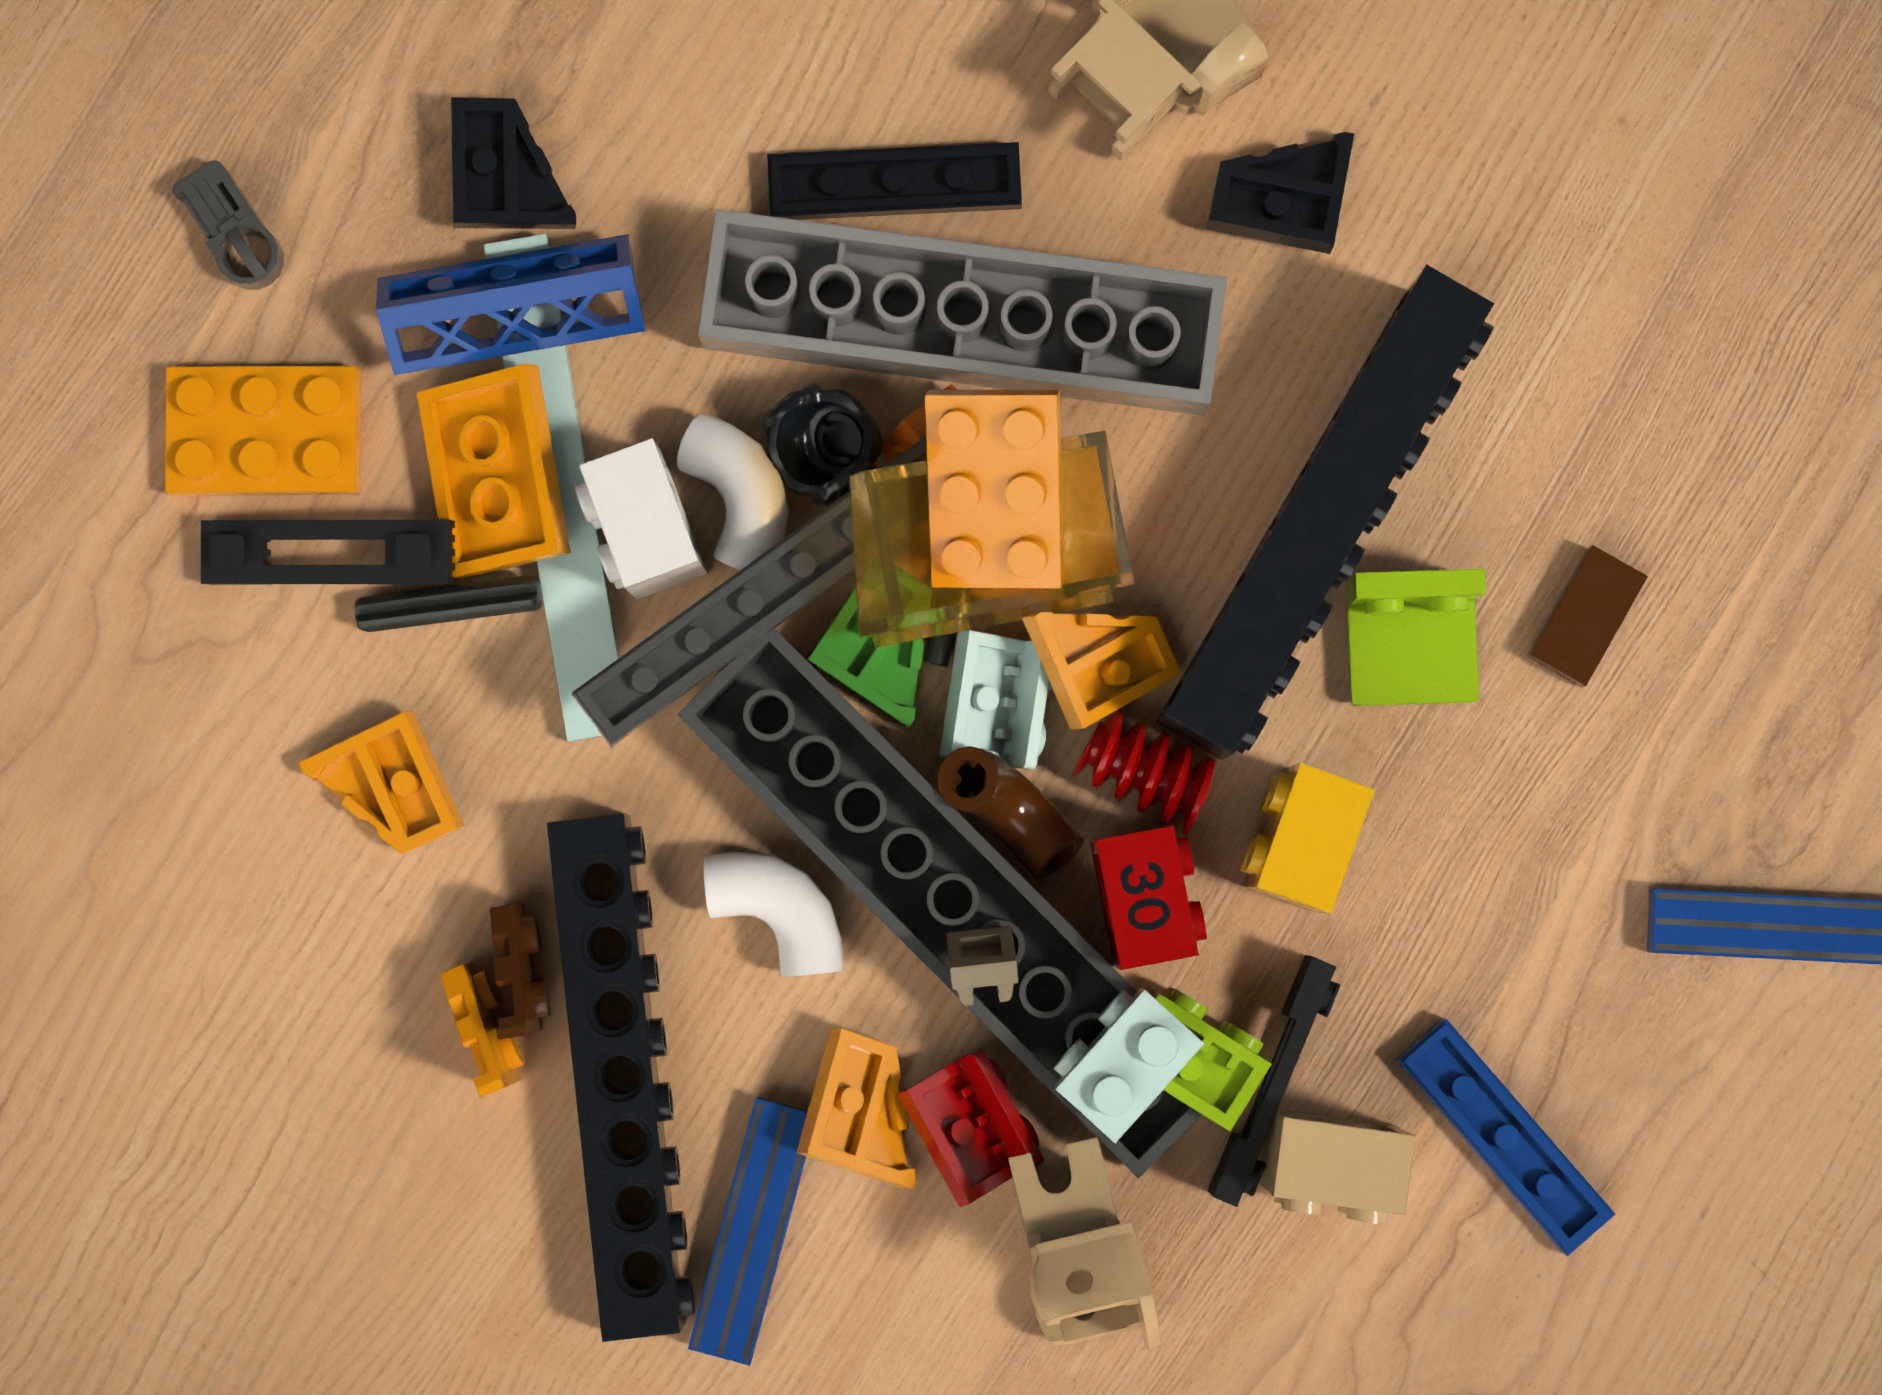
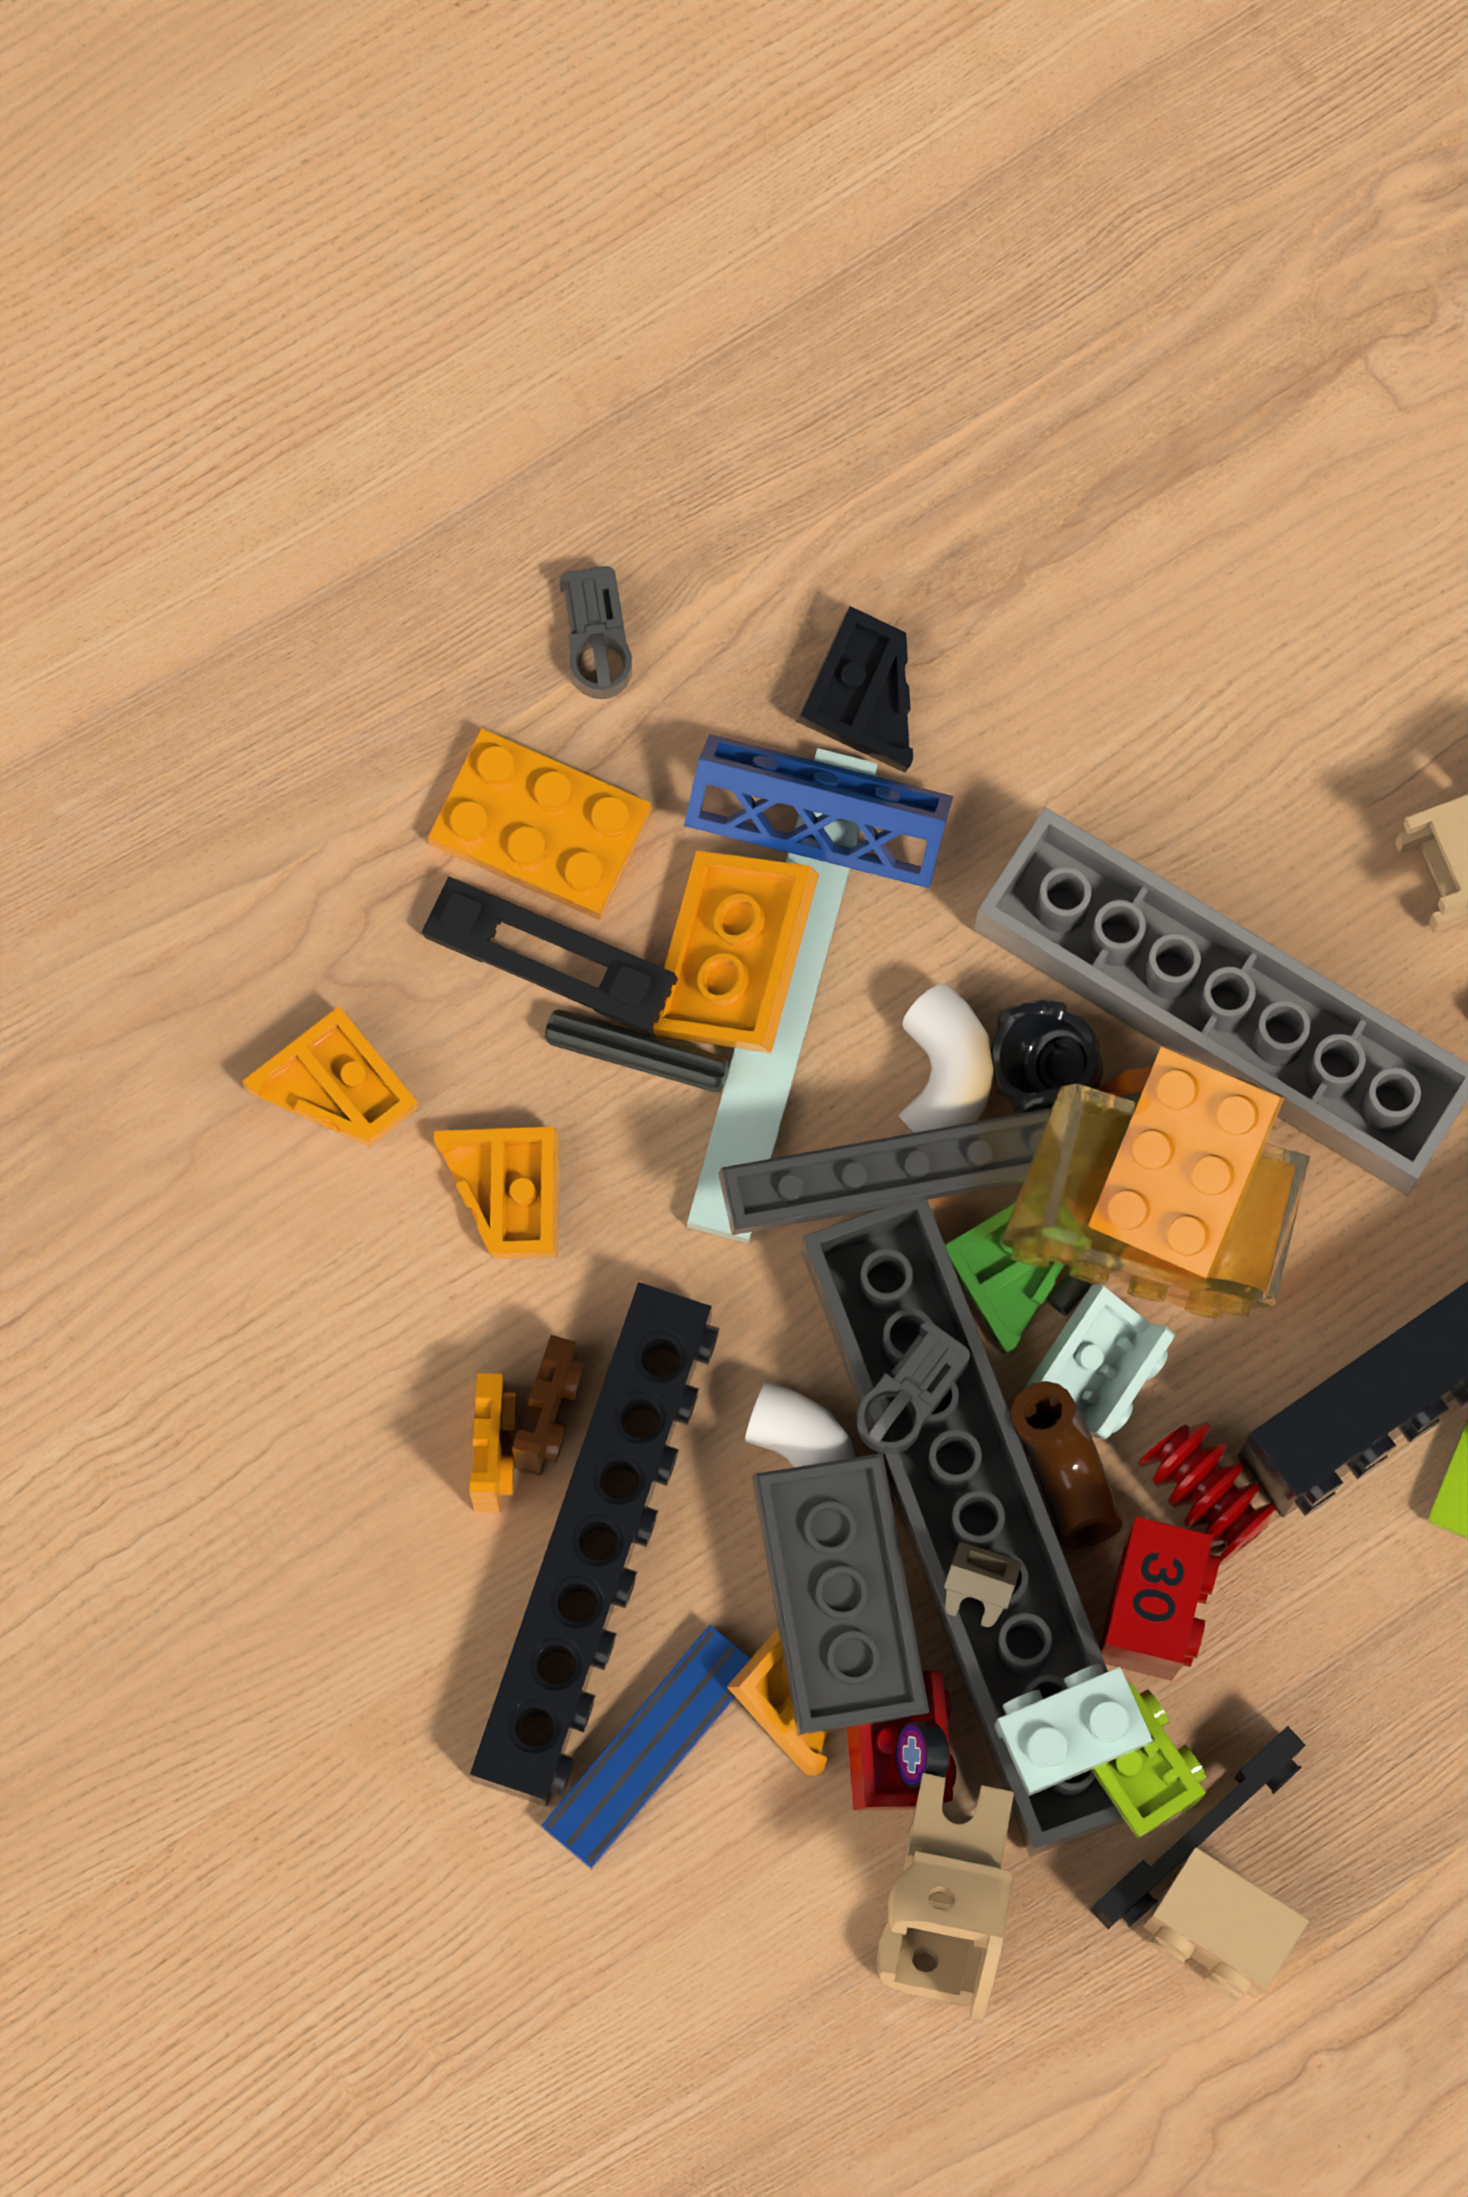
camera: 25 degrees right, 10 degrees down
(187, 758) = (335, 1082): none -> light orange wing
(642, 520) = (852, 1054): white brick -> none
(844, 801) = (919, 1381): none -> dark grey piece
(860, 1025) = (840, 1594): none -> dark grey tile
(895, 181) = (1219, 860): black tile -> none
(998, 1133) = (920, 1750): none -> tile
(1100, 660) = (1211, 1368): light orange wing -> none
(1306, 837) = (1336, 1610): yellow brick -> none
(1505, 1136) = (1394, 1987): blue tile -> none

